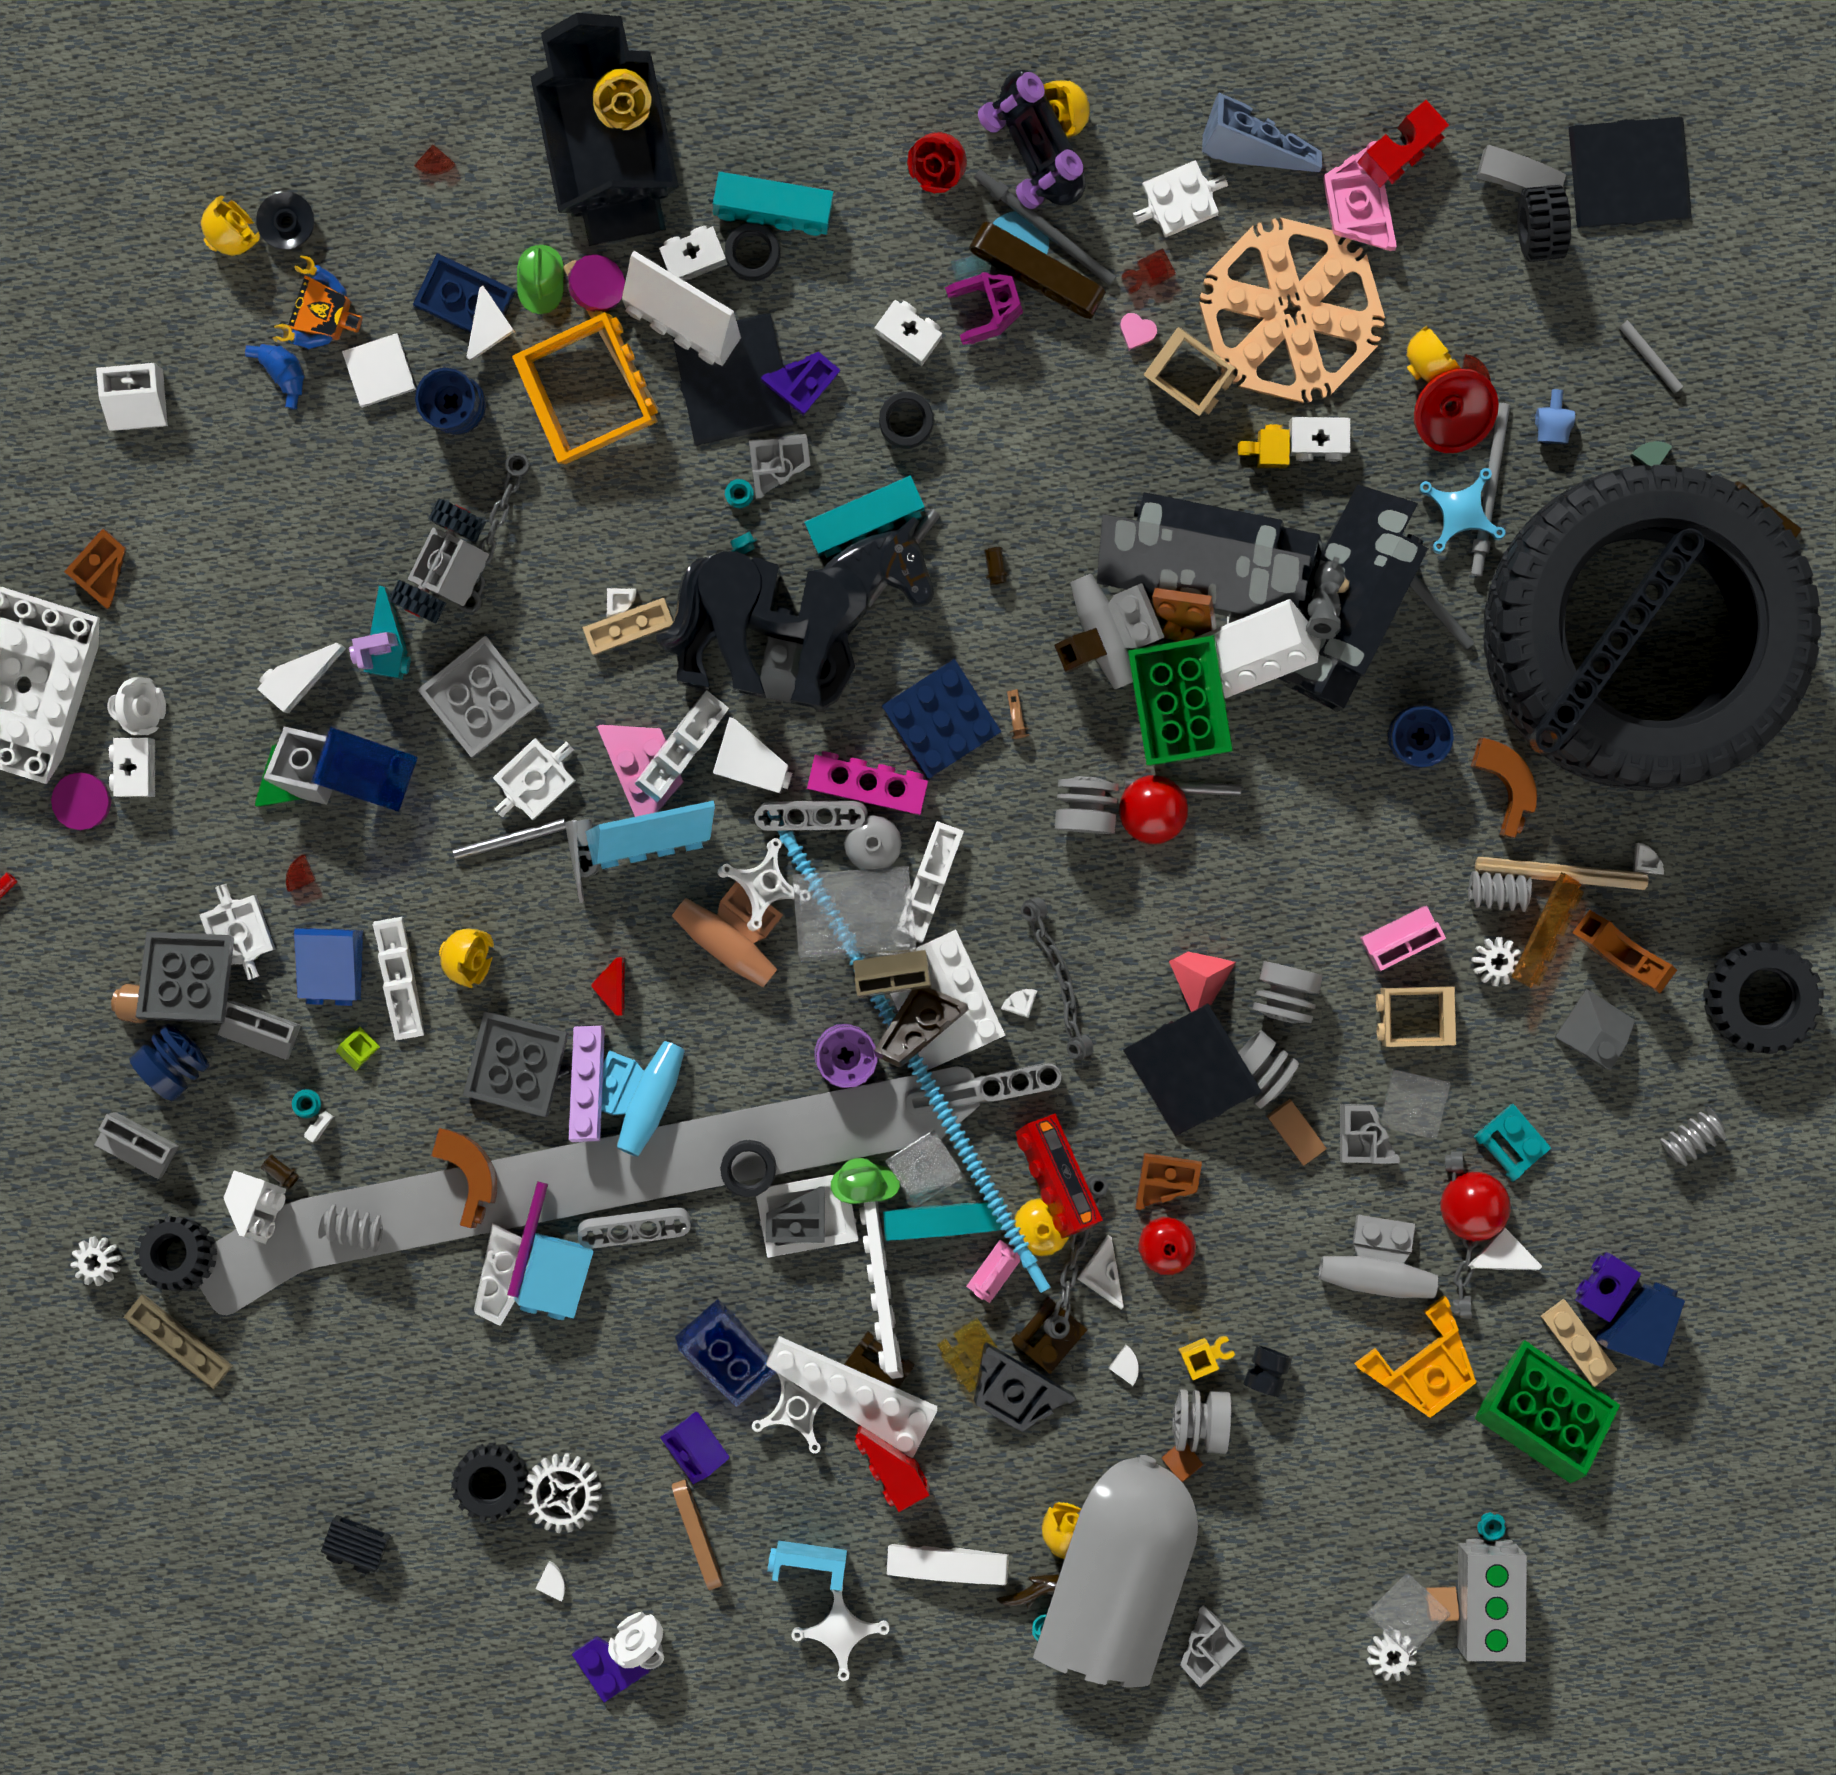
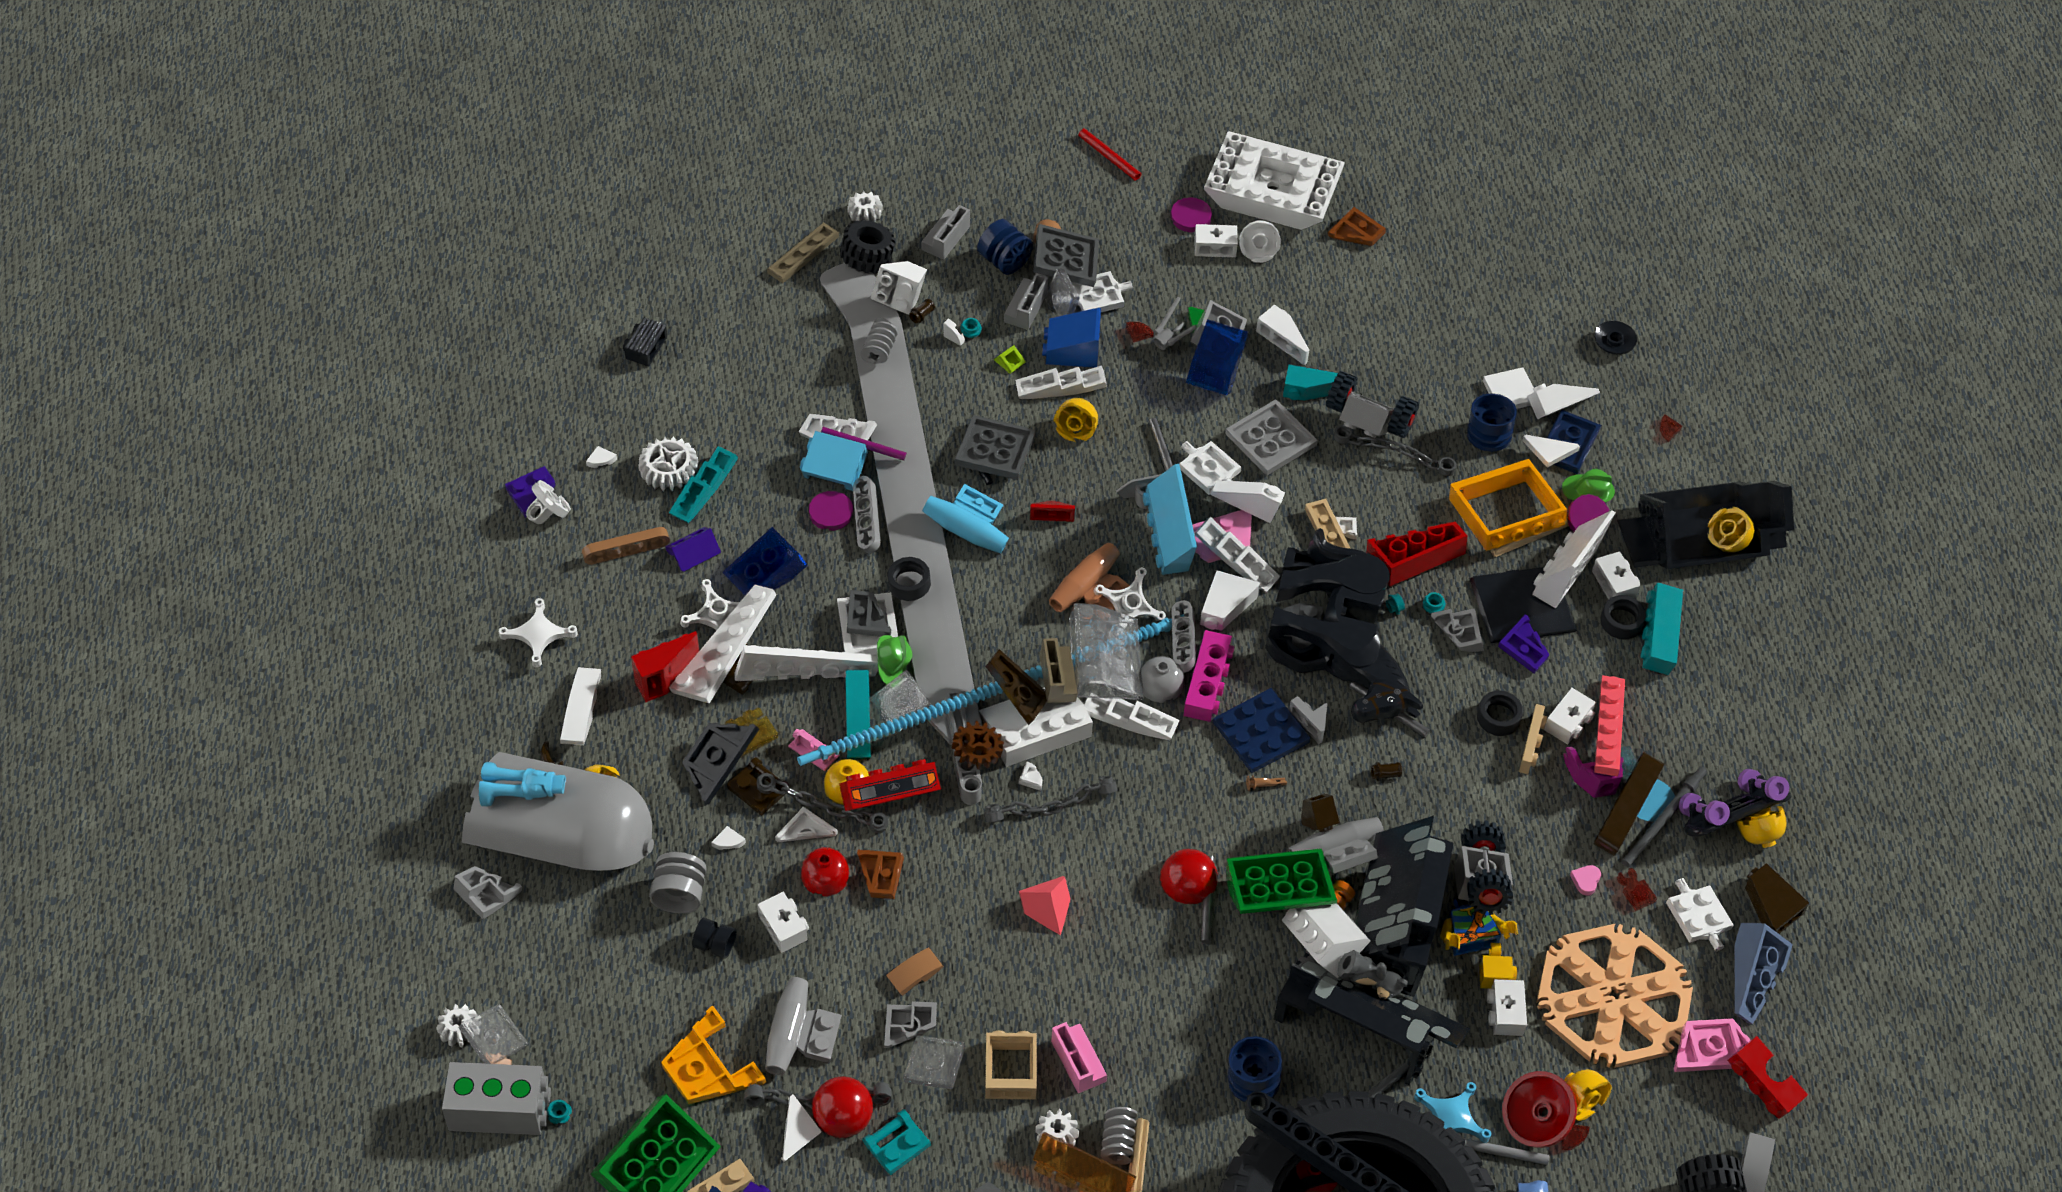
camera: 85 degrees right, 35 degrees down
(132, 396) = (1481, 247): white slope -> none
(227, 228) = (1609, 299): yellow cylinder -> none
(259, 980) = (1061, 294): none -> clear plate
(282, 368) = (1506, 335): blue piece -> none
(315, 840) = (1166, 337): none -> light grey plant
(319, 310) = (1552, 354): torso -> none
(368, 645) = (1305, 357): lavender bracket -> none
(400, 310) = (1557, 397): none -> white slope
(475, 1501) = (683, 405): black tyre -> none
(477, 1169) = (914, 416): dark orange arch -> none
(586, 1083) = (979, 484): lavender plate -> none
(589, 729) = (1252, 497): none -> white slope
(592, 1443) = (703, 485): none -> teal slope
(624, 1274) = (831, 510): none -> magenta tile
(668, 517) = (1418, 550): none -> red wedge
(809, 1557) = (592, 624): medium azure panel -> none
(860, 1063) = (989, 637): medium lavender wheel -> none
(865, 516) = (1423, 682): teal brick -> none
(929, 284) = (1609, 726): none -> coral plate
(934, 652) = (1311, 721): none -> light grey slope
(937, 162) = (1709, 736): red cylinder -> none
(945, 381) = (1533, 739): none -> tan plate
(1010, 1061) = (977, 745): none -> reddish brown gear
(1086, 806) = (1192, 818): light grey wheel -> none
(1102, 1611) = (534, 783): none -> medium azure piece
(1150, 454) = (1484, 868): none -> brick
(1163, 108) = (1774, 899): none -> dark brown slope
(1166, 355) = (1564, 891): tan window -> none
(1182, 1463) = (642, 877): dark orange slope -> none
(1185, 609) = (1358, 887): dark orange wing -> none
(1192, 1069) = (972, 883): black piece -> none
(1201, 1358) = (730, 887): yellow brick -> none
(1216, 472) = (1473, 931): none -> torso
(1256, 1292) = (783, 922): none -> white brick
(1265, 1069) = (971, 936): light grey wheel -> none
(1287, 992) = (1035, 958): light grey wheel -> none
(1516, 777) = (1215, 1153): dark orange arch -> none

